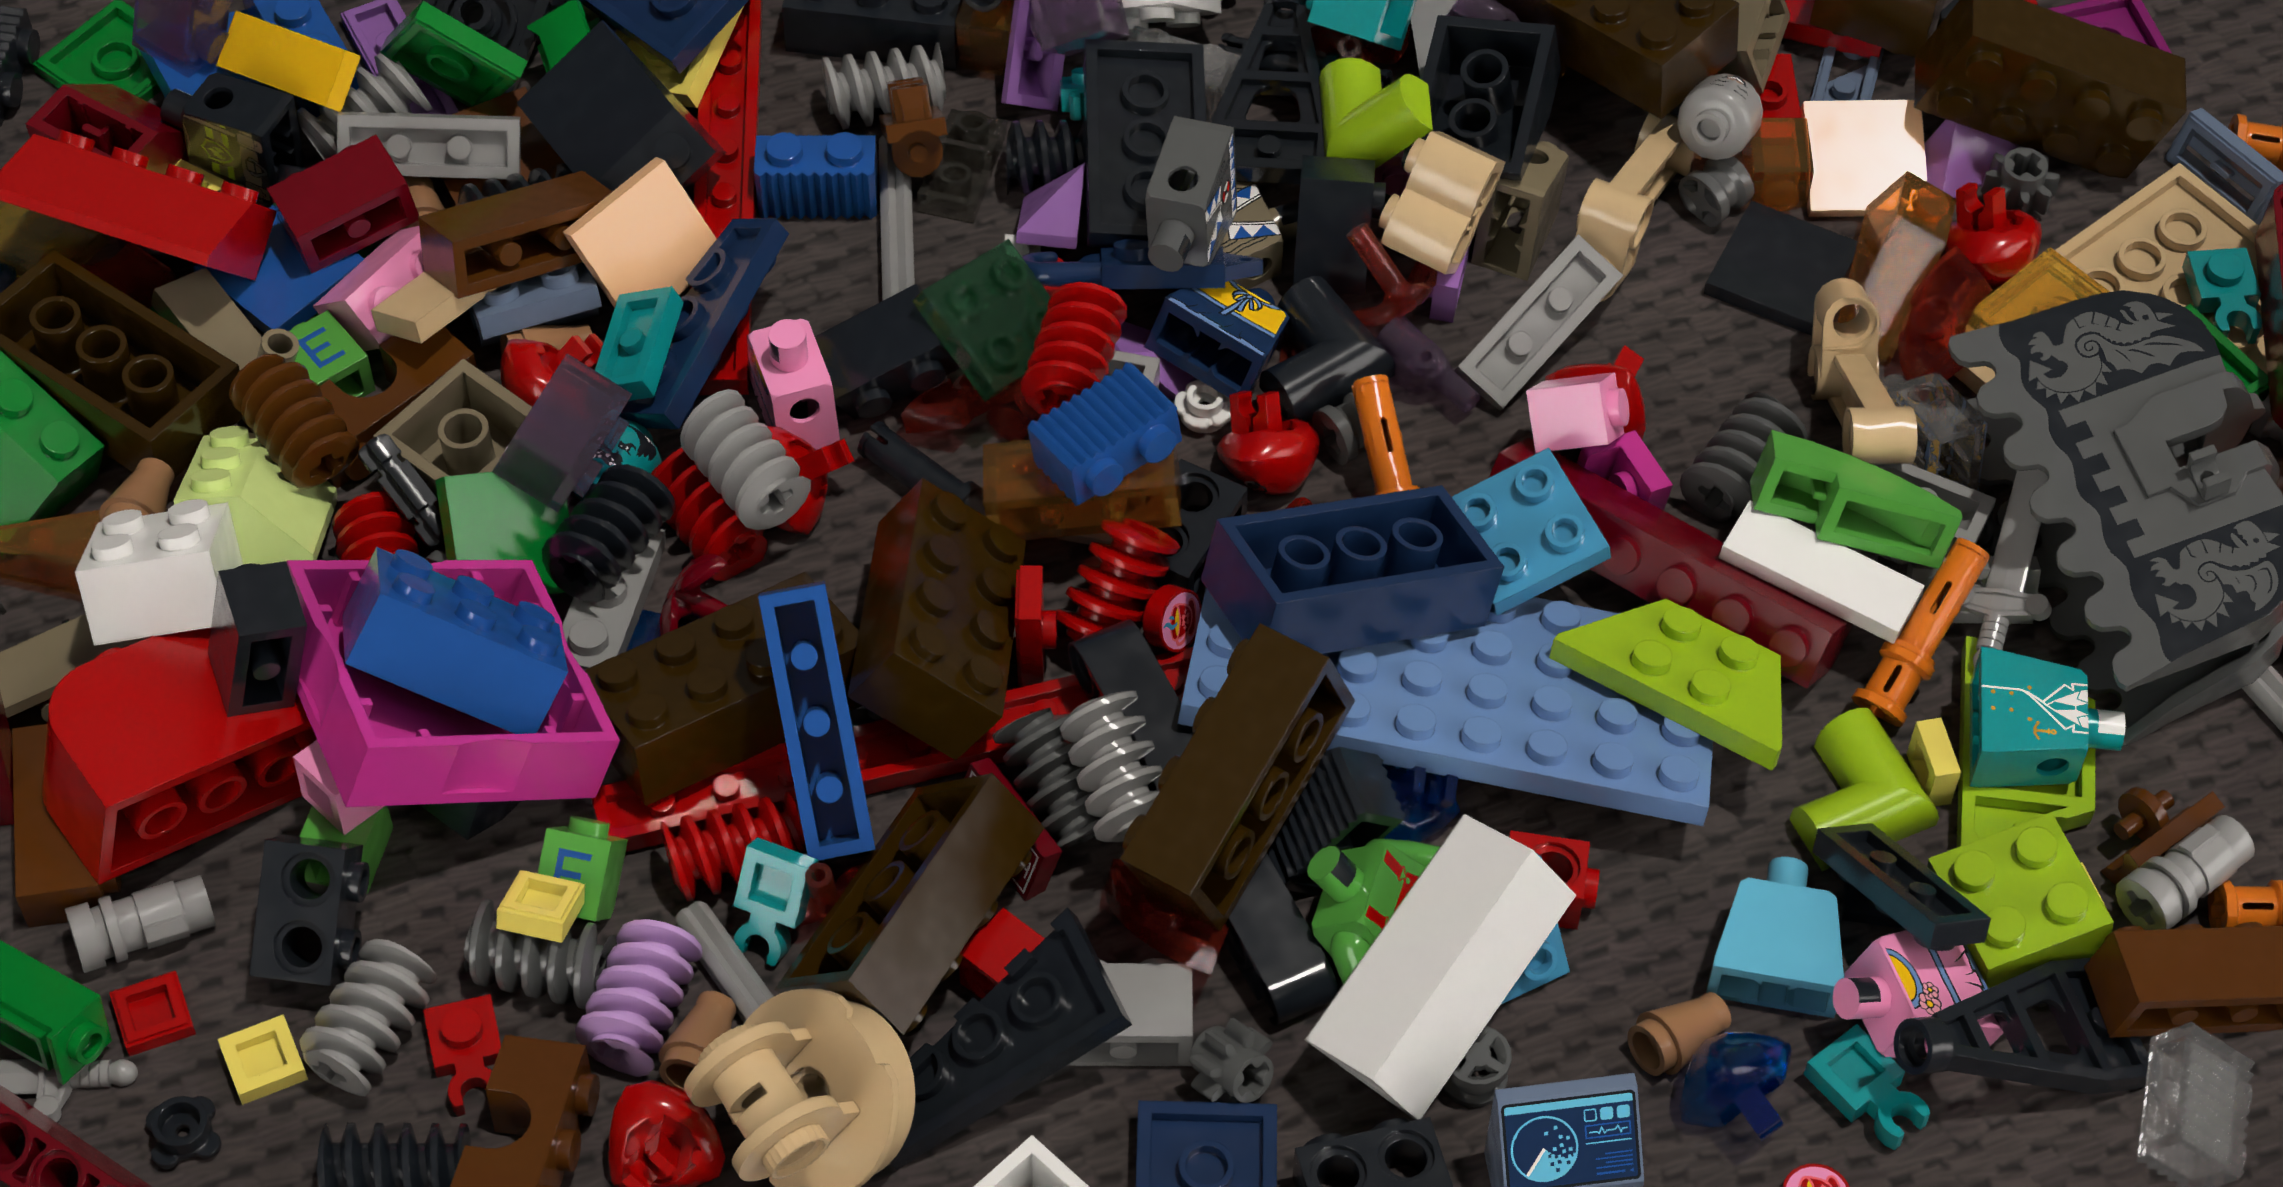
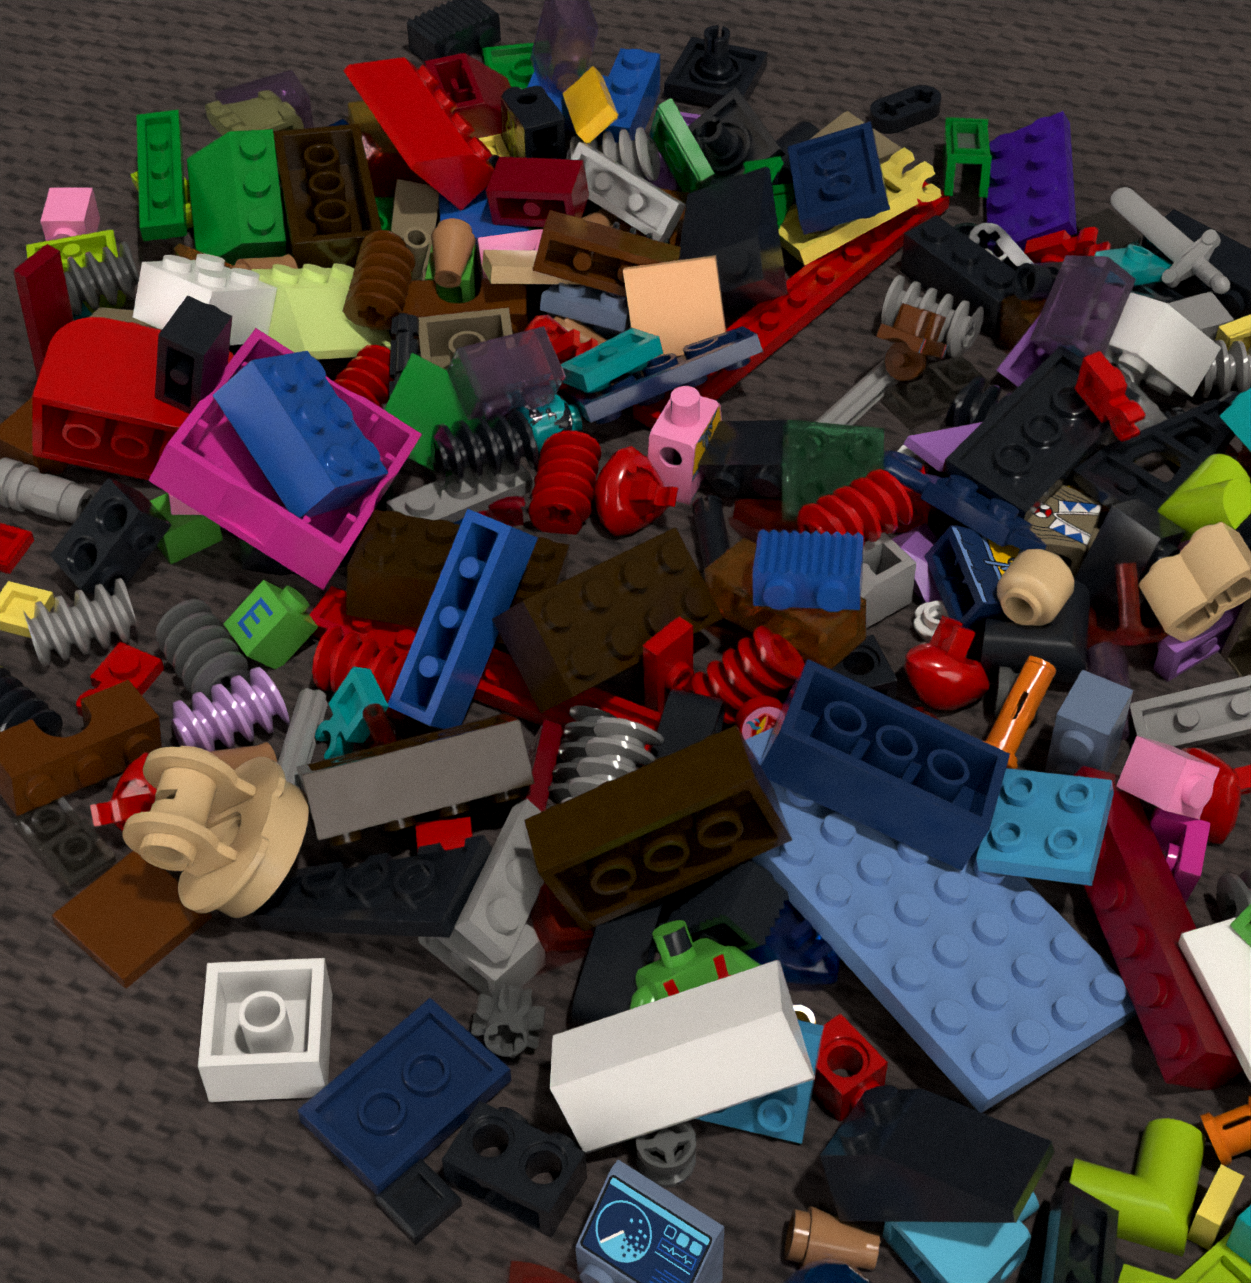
camera: 45 degrees right, 5 degrees down
(326, 334) = (451, 251): none -> medium nougat cone
(540, 906) = (216, 621): light yellow tile -> none
(744, 461) = (591, 454): light grey piece -> none
(816, 175) = (832, 340): blue brick -> none
(1122, 932) = (503, 889): none -> light grey plate
(1185, 65) = (1104, 392): none -> red plate
(1188, 222) = (1014, 465): dark grey torso -> none
(1296, 308) = (1035, 587): none -> tan head
(1461, 419) = (1089, 725): none -> sand blue brick
(1685, 672) = (1073, 1003): lime wing -> none
(1718, 893) = (930, 1161): none -> black slope

